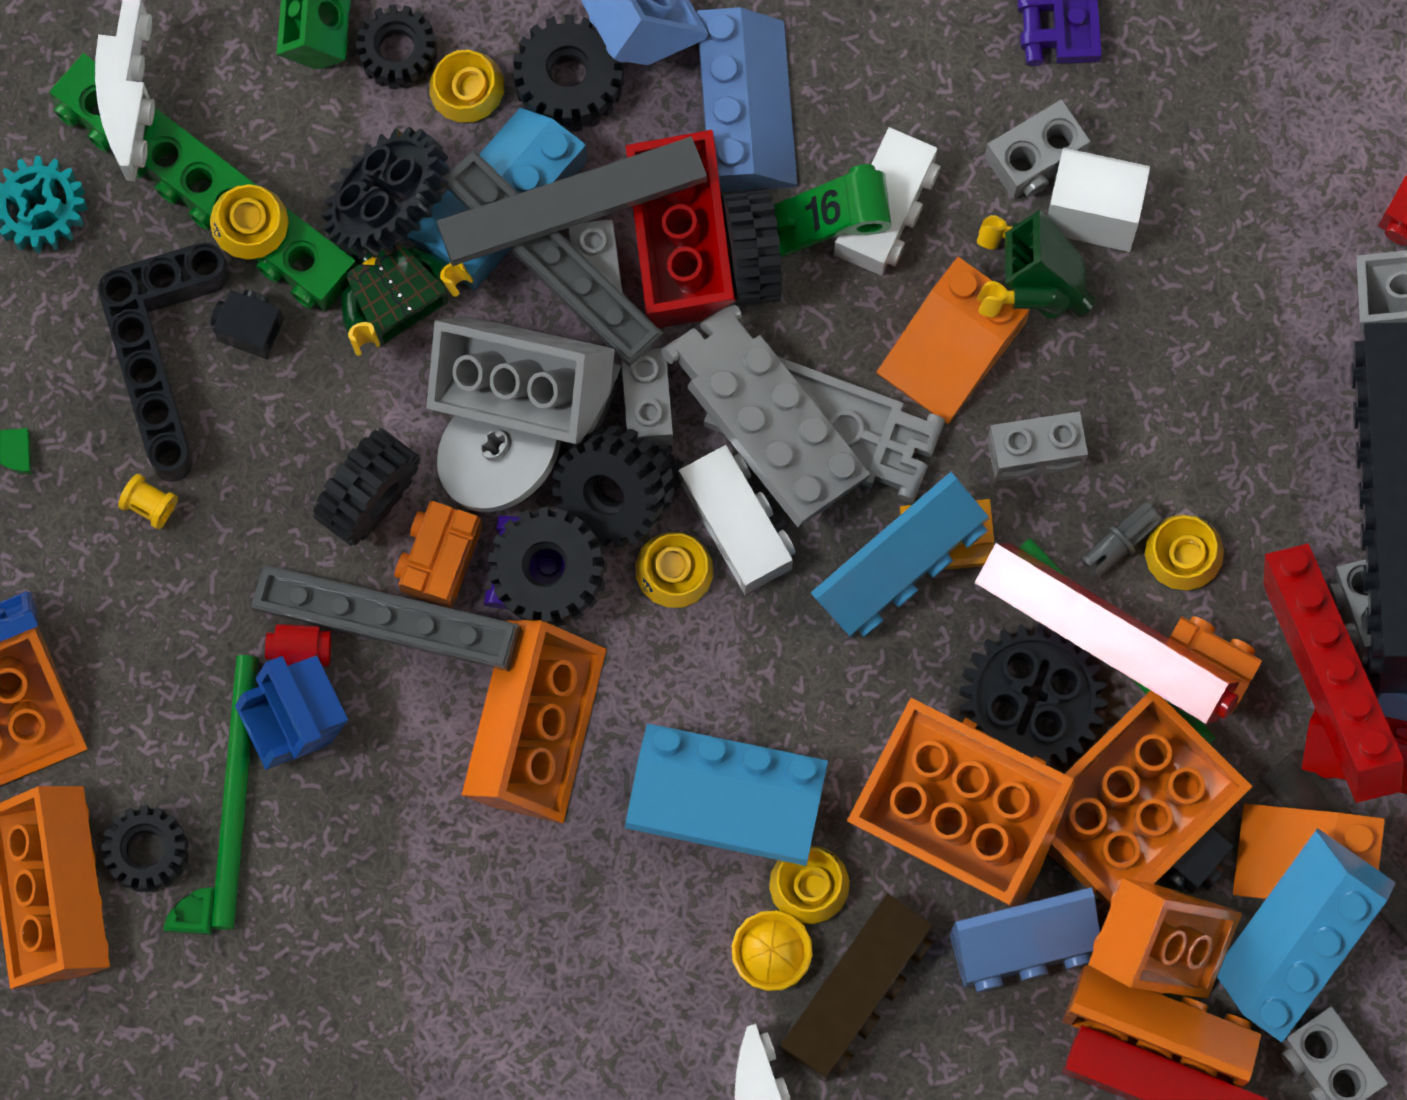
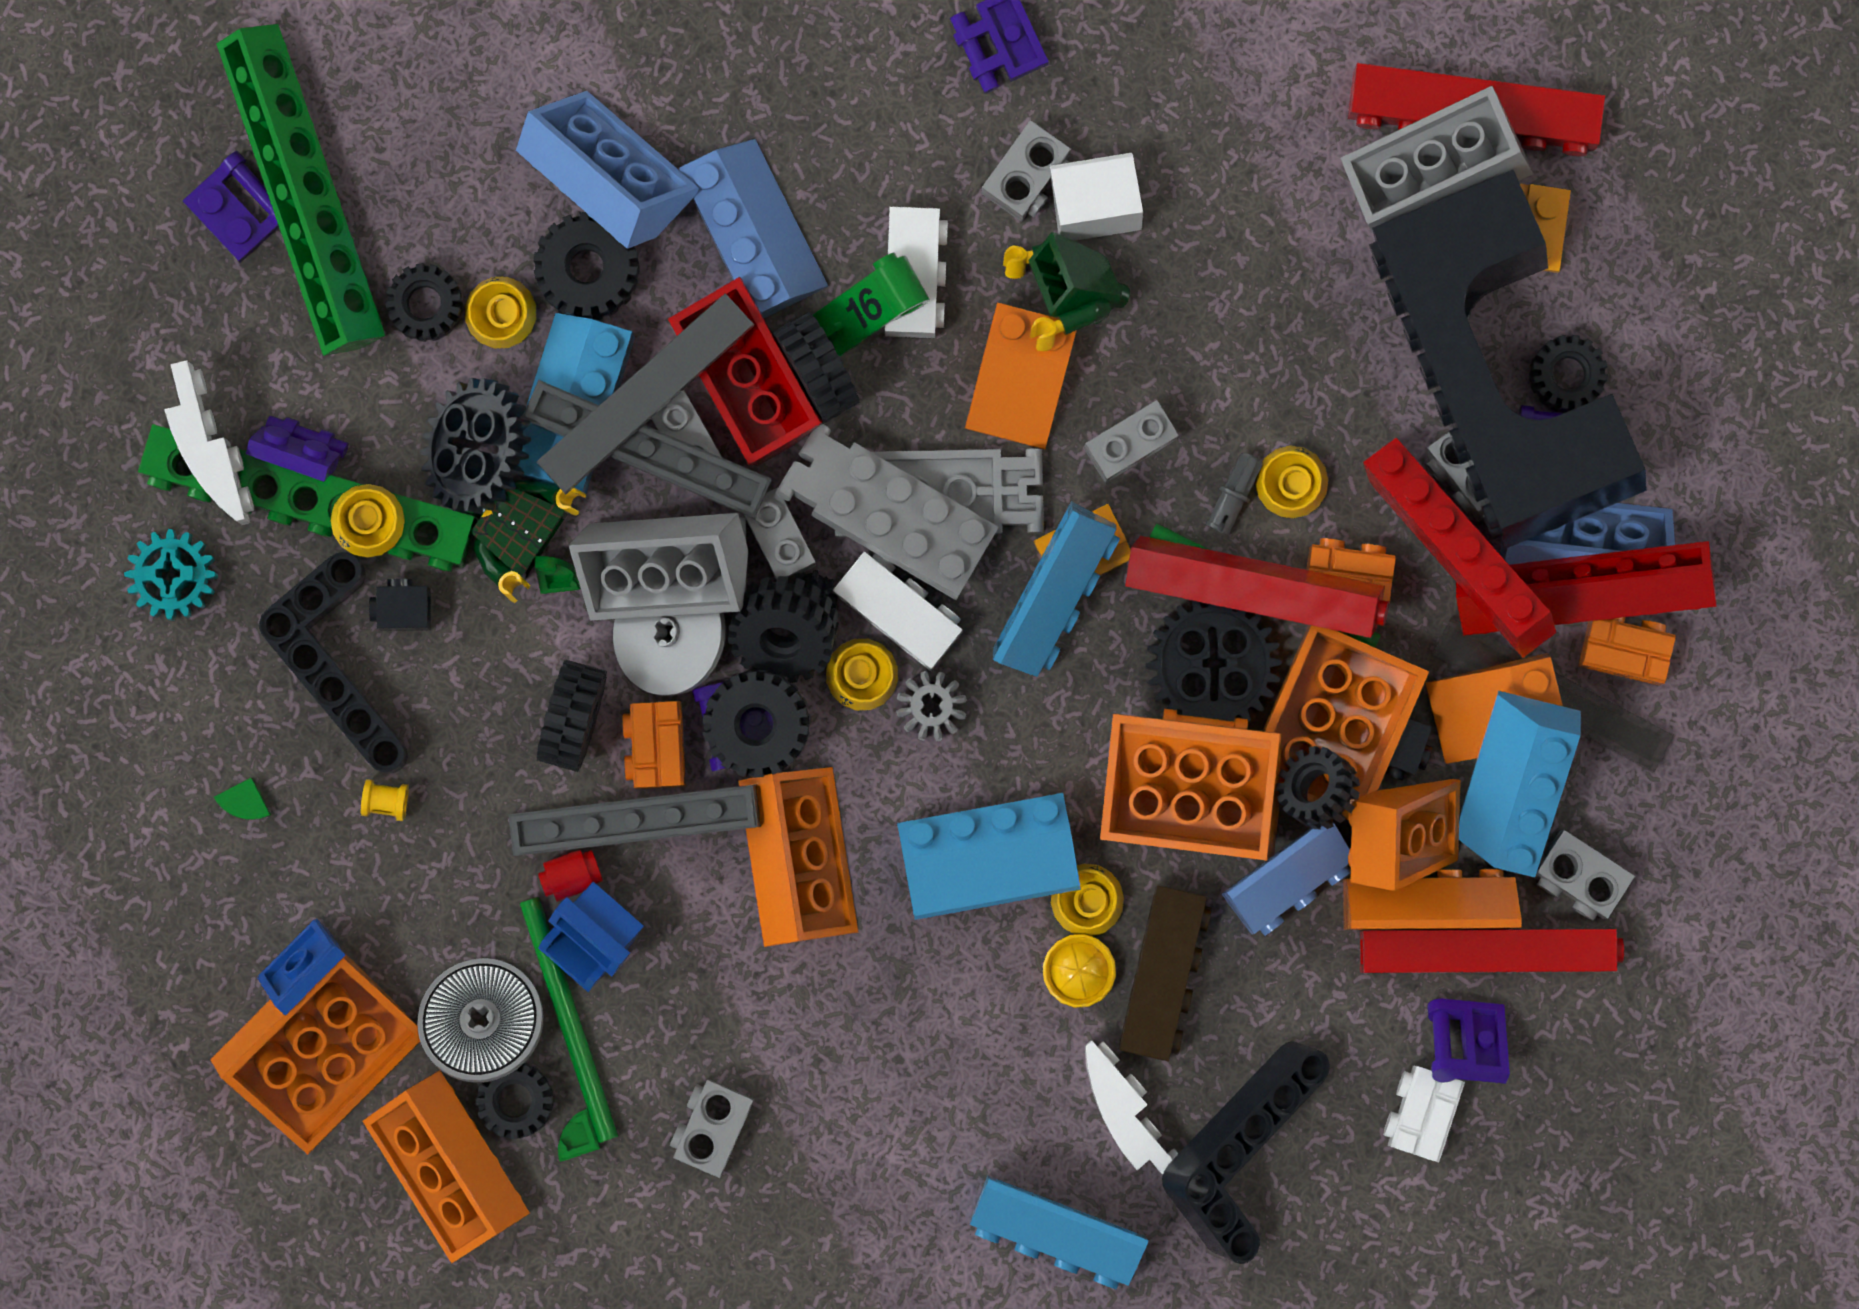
camera: 25 degrees left, 10 degrees up
(122, 778) = (480, 1051): none -> piece
(212, 130) = (297, 448): none -> dark purple plate
(341, 966) = (721, 1131): none -> light grey brick
(410, 351) = (555, 575): none -> green tile
(748, 629) = (917, 706): none -> light grey gear
(1100, 869) = (1335, 798): none -> black tyre

